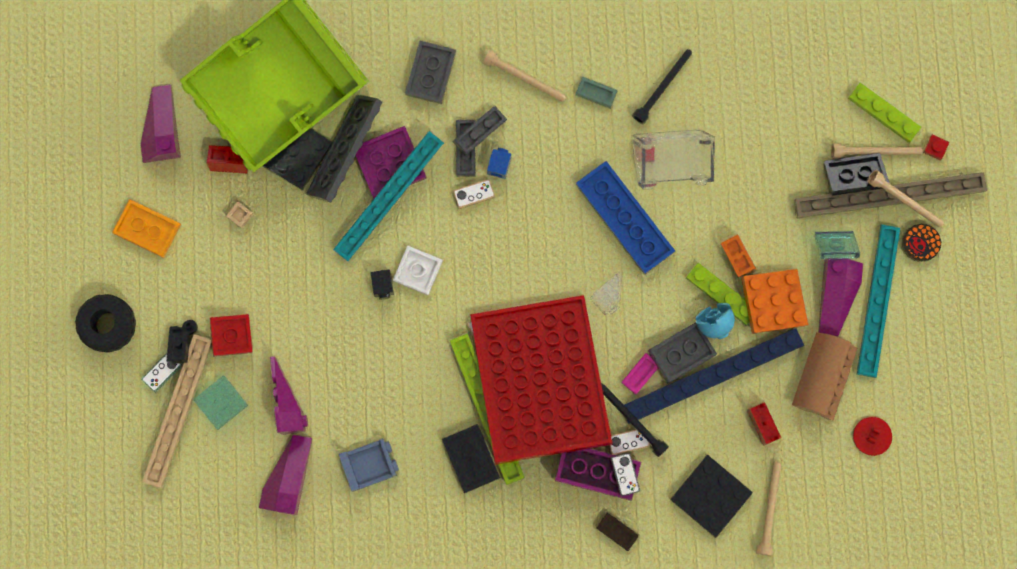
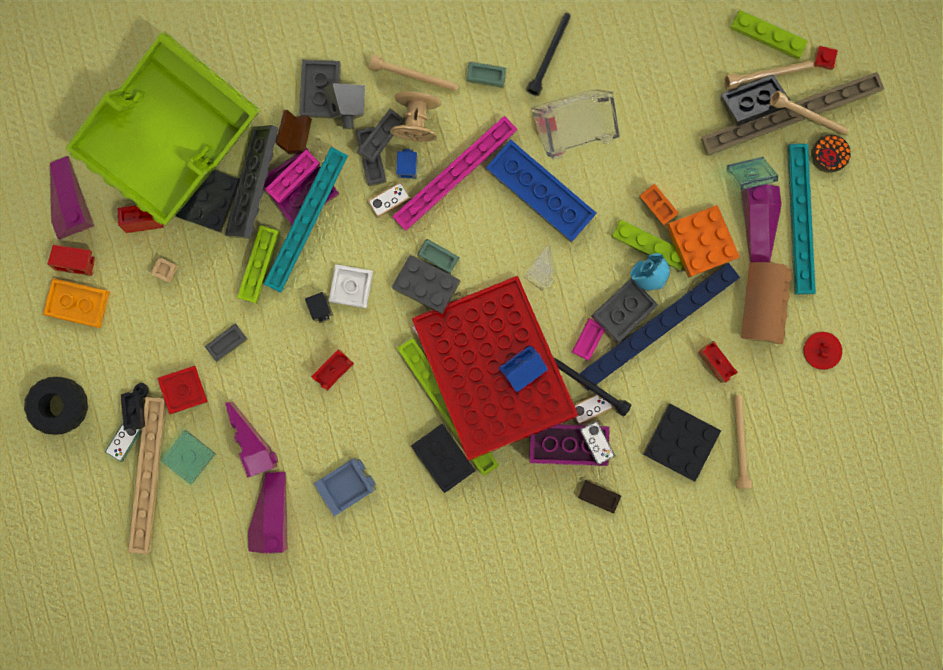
camera: 15 degrees left, 5 degrees up
(152, 186) = (71, 260): none -> red hinge
(283, 298) = (226, 342): none -> dark grey tile
(332, 229) = (258, 264): none -> lime plate
(381, 348) = (332, 370): none -> red hinge
(385, 151) = (292, 176): none -> dark pink plate
(395, 109) = (293, 133): none -> reddish brown panel
(452, 91) = (345, 102): none -> dark grey torso
(492, 284) = (426, 284): none -> dark grey plate
(510, 259) = (438, 256): none -> sand green tile
(518, 119) = (416, 105): none -> tan piece
(544, 182) = (455, 173): none -> dark pink plate
(569, 386) = (523, 368): none -> blue panel

